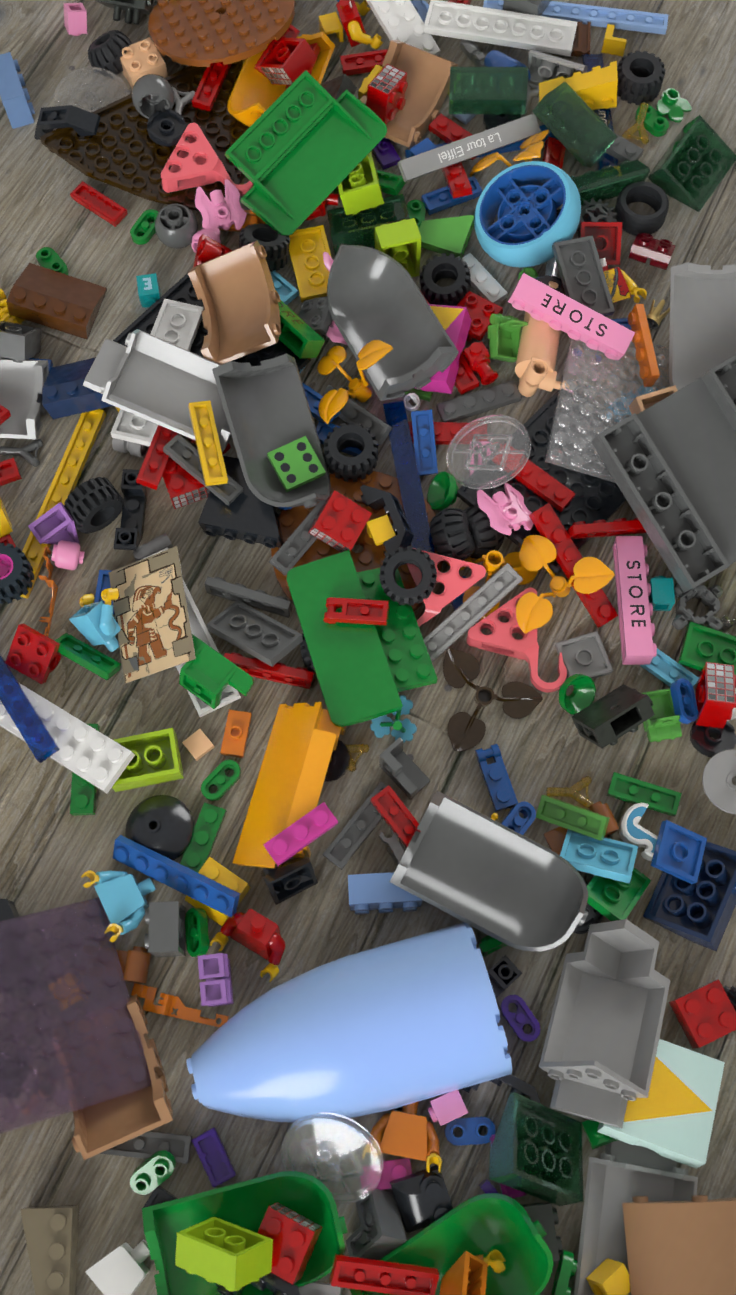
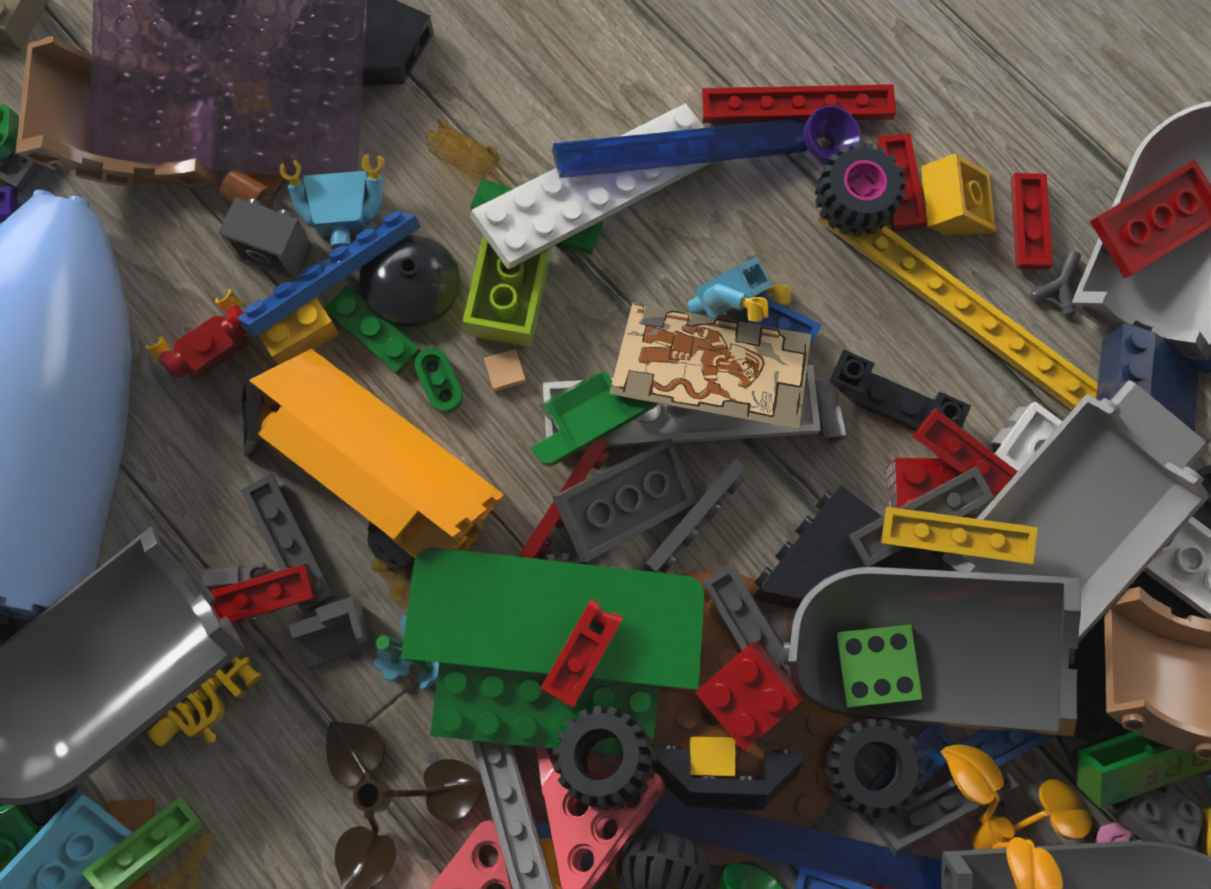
camera: 110 degrees right, 5 degrees up
(33, 654) = (725, 198): red plate -> none
(50, 583) = (853, 261): orange piece -> none
(54, 526) = (908, 280): medium lavender slope -> none
(54, 835) = (462, 151): none -> clear yellow hinge
(67, 555) = (862, 289): bright pink head -> none
(87, 656) = (695, 266): green plate -> none
(94, 505) = (924, 344): black tyre -> none
(170, 1002) = (183, 214): orange piece -> none
(197, 932) = (250, 277): green plate -> none
(218, 984) = (162, 268): medium lavender hips -> none
(236, 733) = (497, 426): orange plate -> none
(300, 834) = (272, 431): dark pink plate -> none
(376, 892) = (182, 514): medium blue brick -> none
(496, 778) = (262, 766): blue plate -> none
(517, 823) = (178, 764): blue plate -> none

